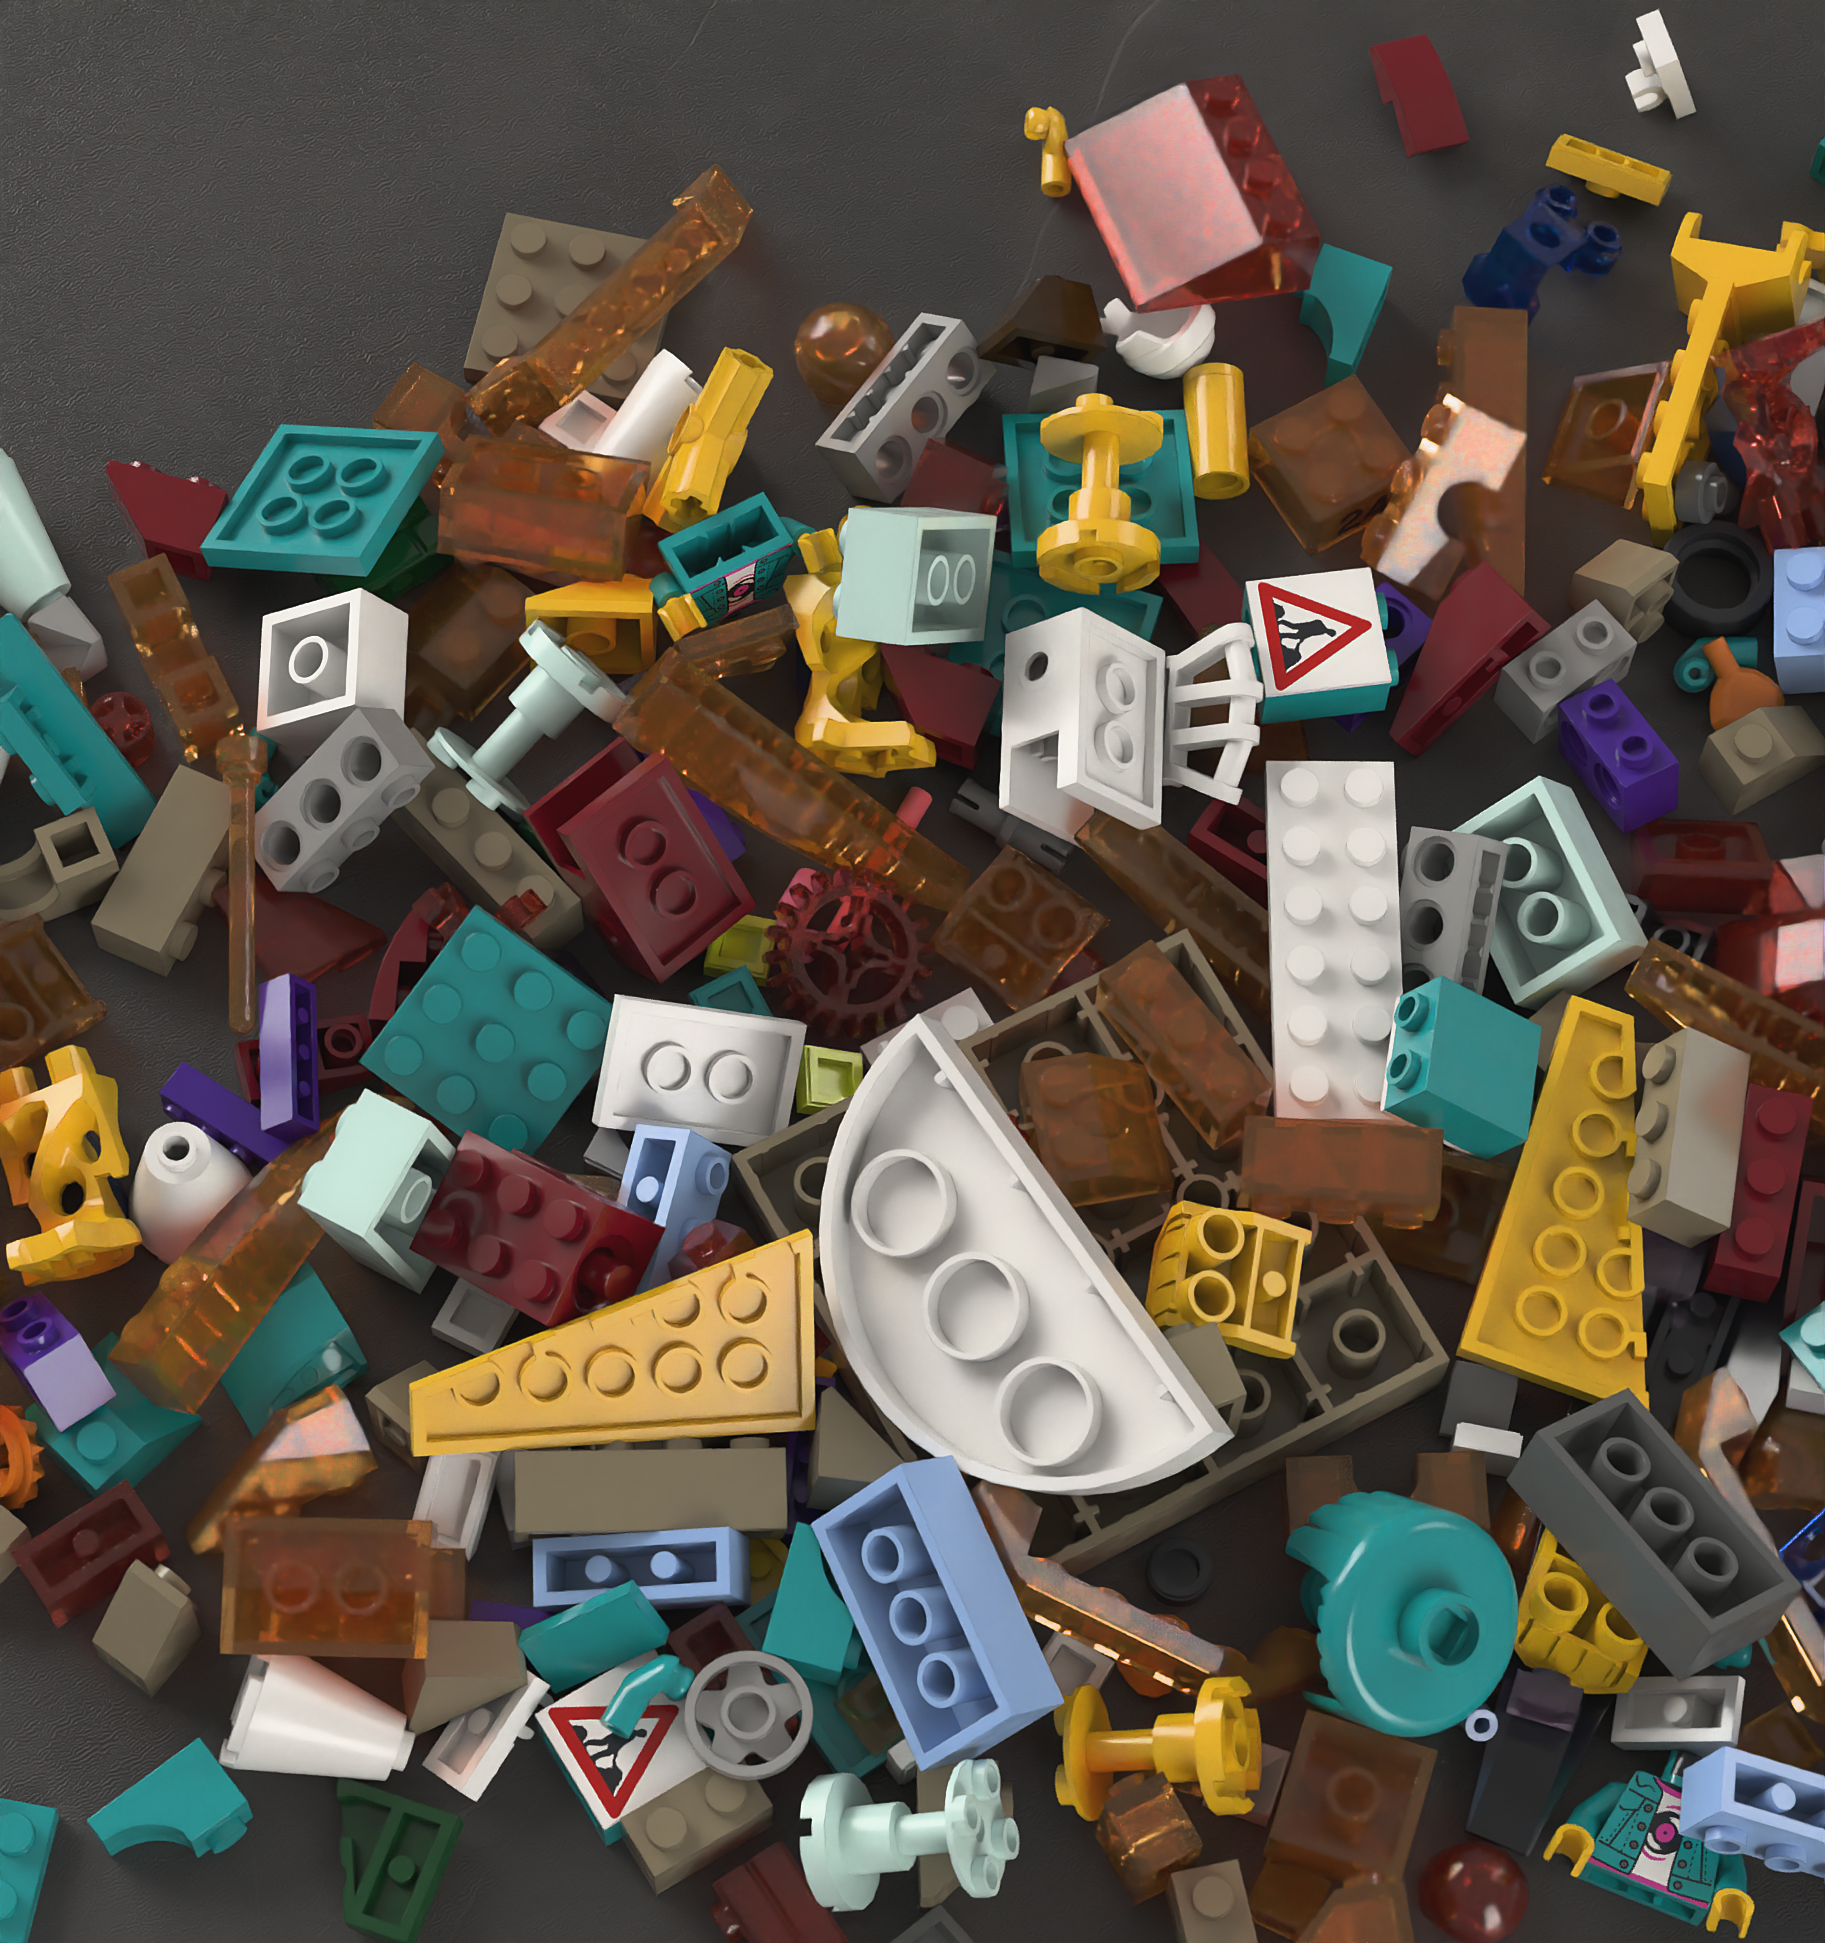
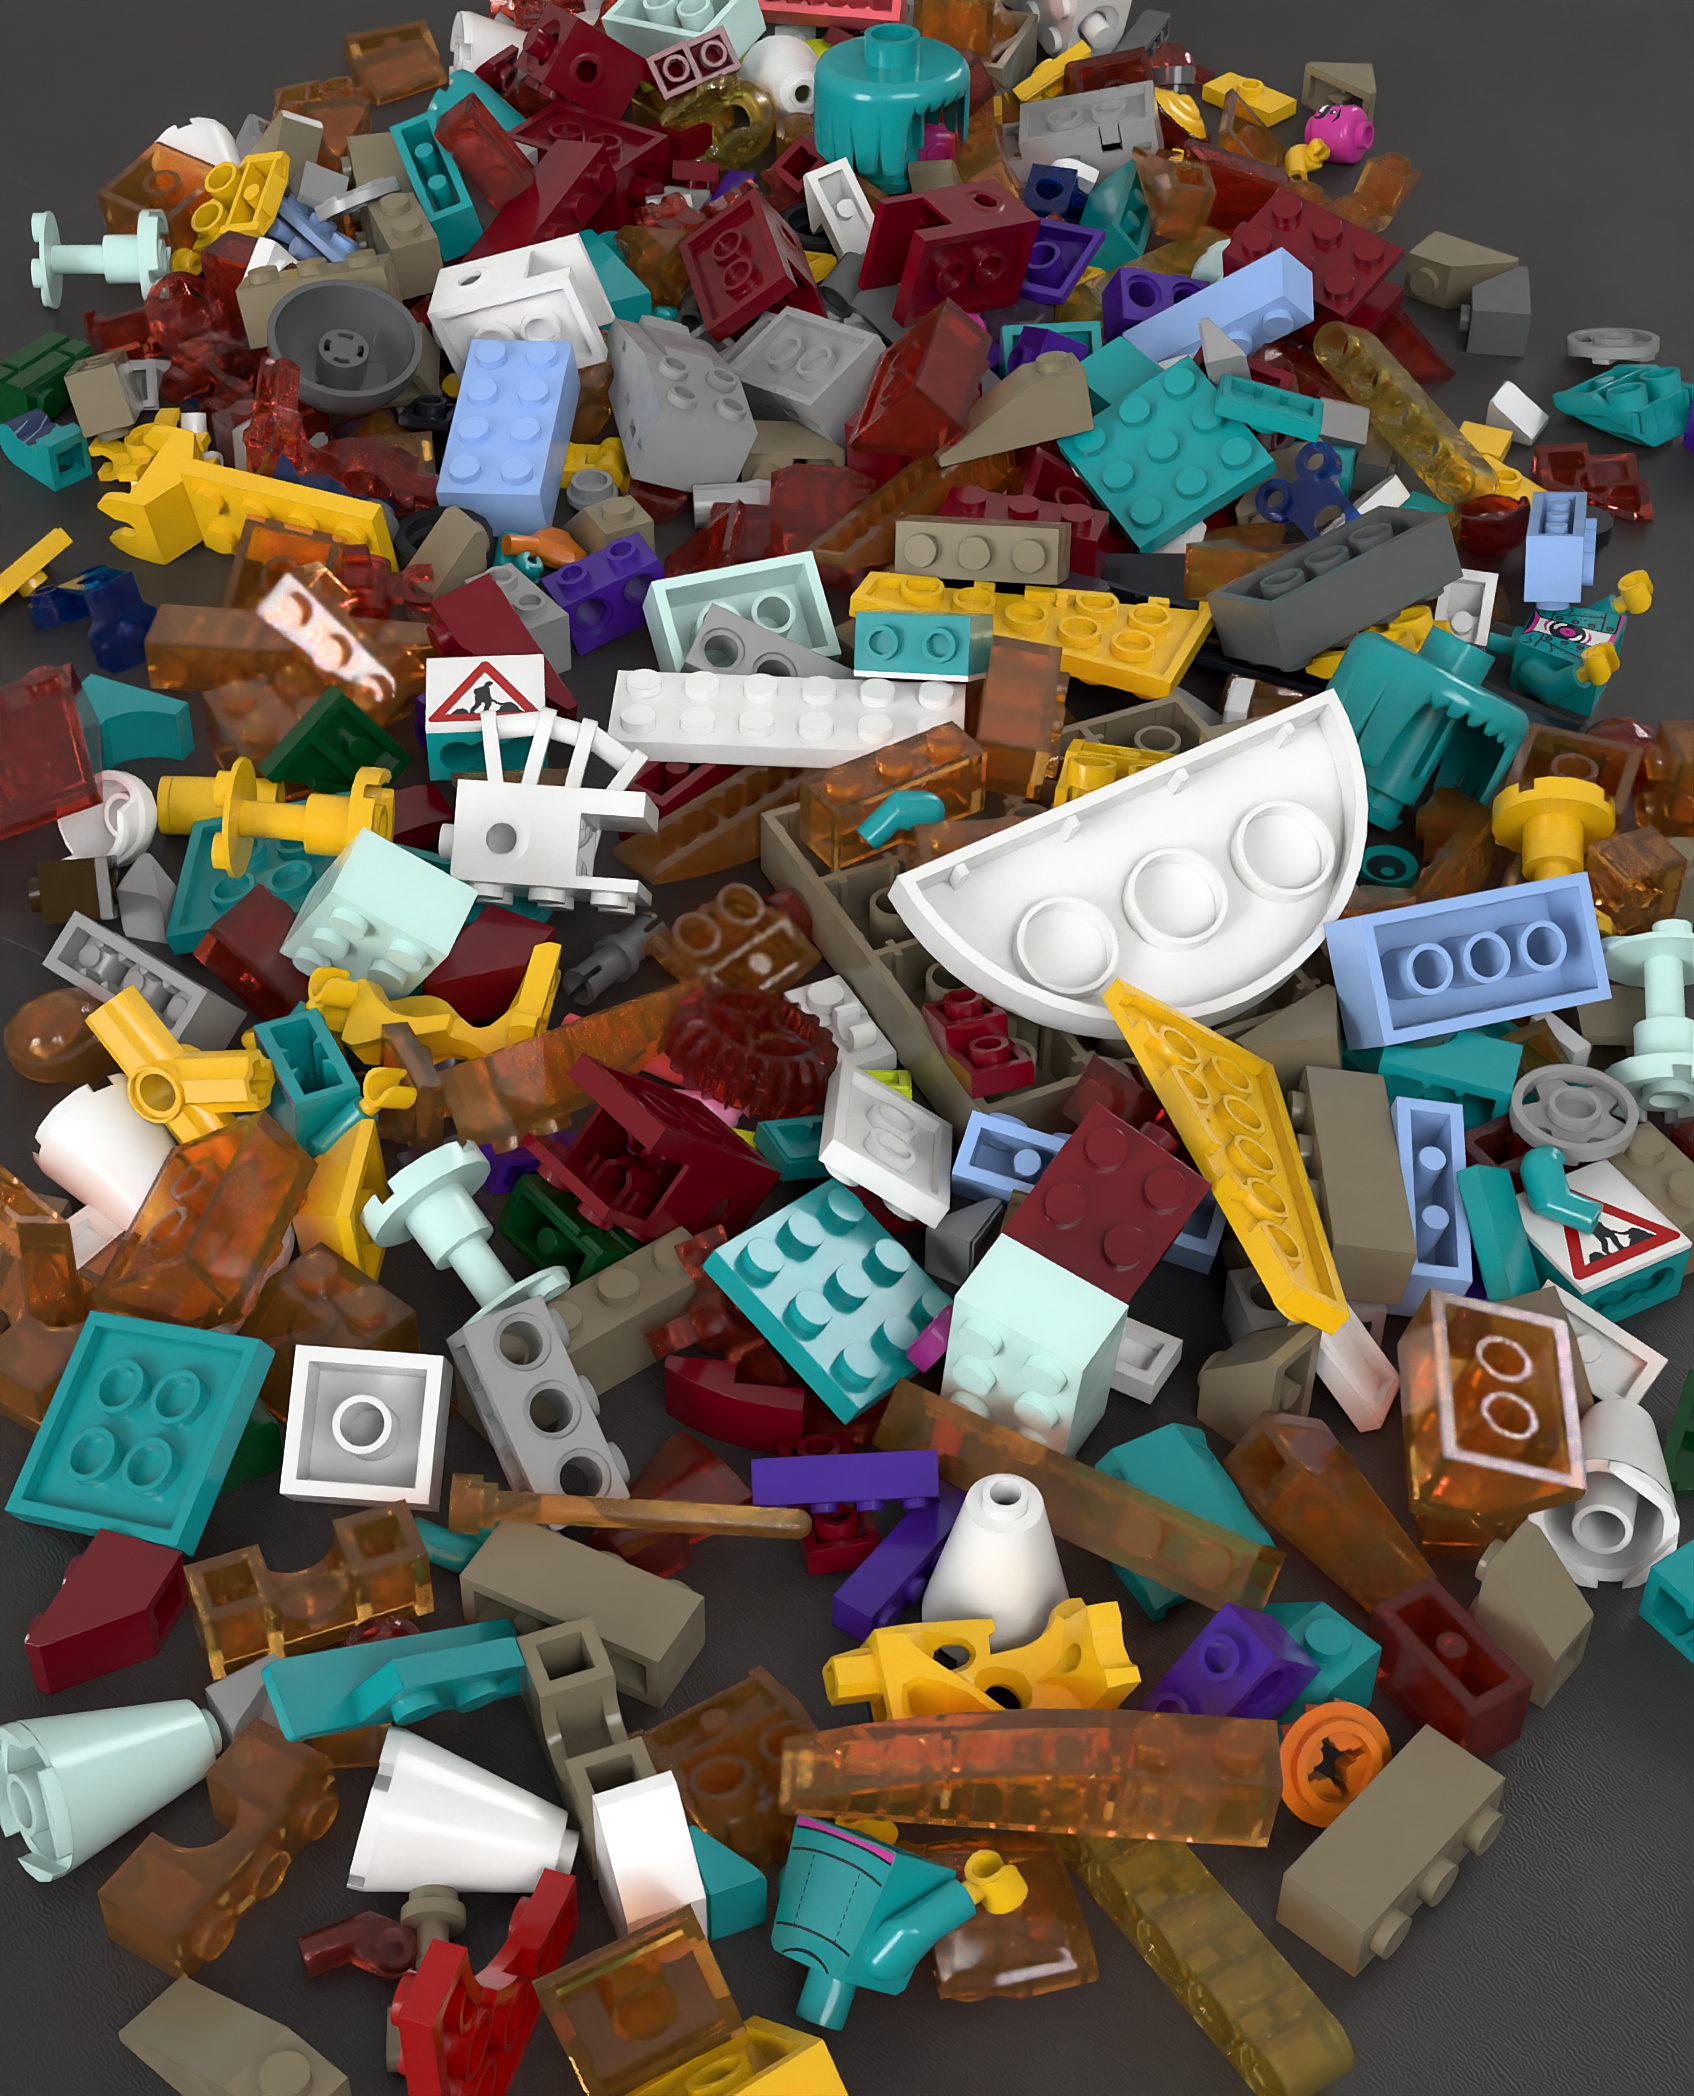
camera: 85 degrees left, 25 degrees down
(445, 1119) = (931, 1341): none -> magenta tile
(794, 1149) = (976, 1043): none -> dark red slope
(1129, 1050) = (900, 812): none -> teal arm
(1236, 1606) = (1389, 866): none -> teal tile
(1275, 514) = (332, 746): none -> dark green wing
(1565, 503) = (377, 587): none -> clear red pin

